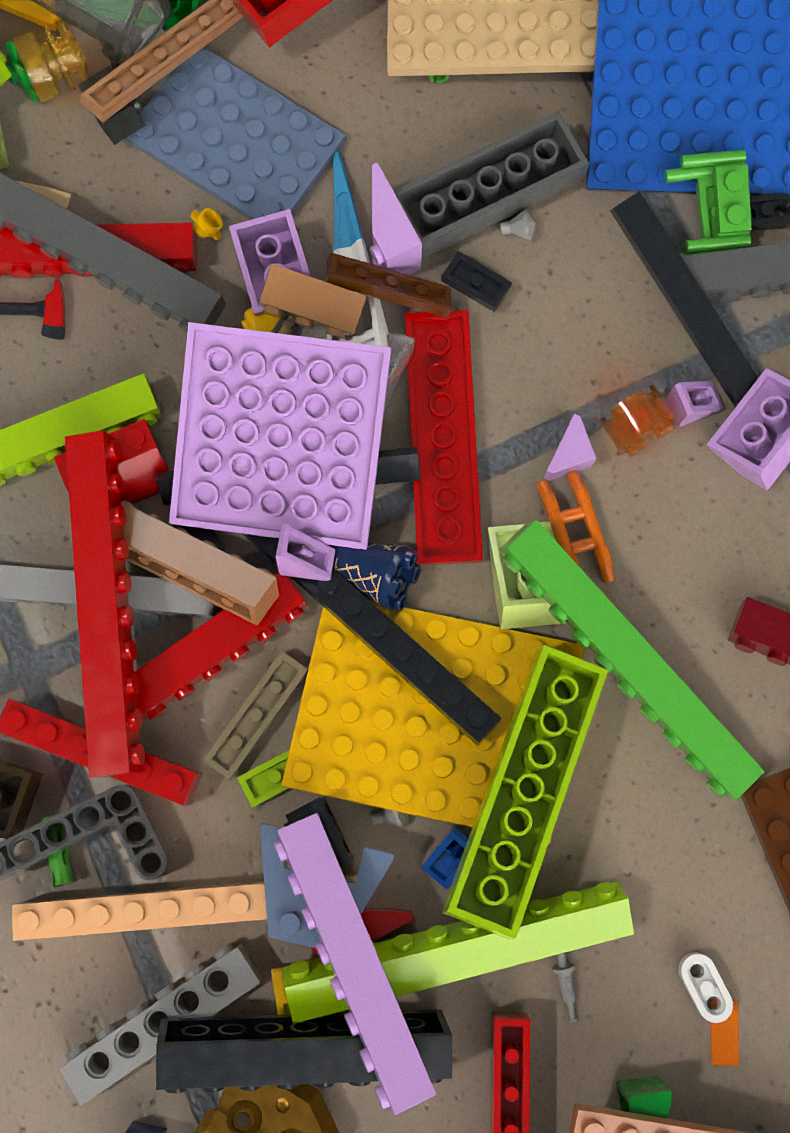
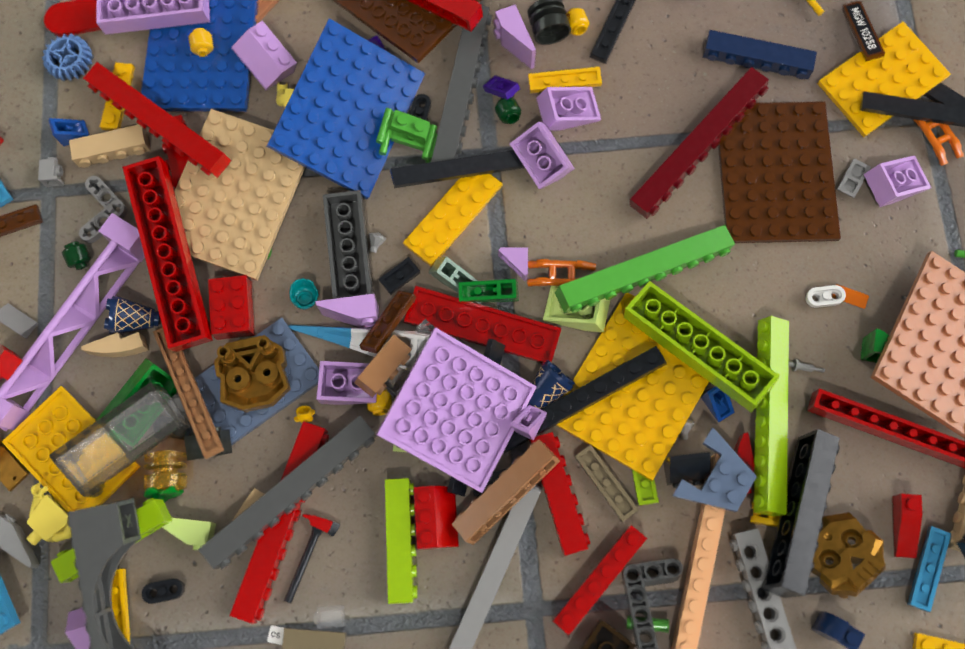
camera: 70 degrees left, 5 degrees down
(103, 605) = (520, 543): red brick -> none
(216, 133) = (255, 389): none -> pearl gold brick
(332, 55) = (231, 307): none -> red brick
(355, 964) = (766, 465): lavender brick -> none
(392, 148) = (303, 293): none -> teal hair
(500, 424) = (489, 291): none -> green slope
(502, 374) = (450, 273): none -> sand green slope
(607, 326) = (451, 216): none -> yellow plate
(639, 420) = (514, 218): clear orange brick -> none
(694, 401) = (512, 188): lavender slope -> none

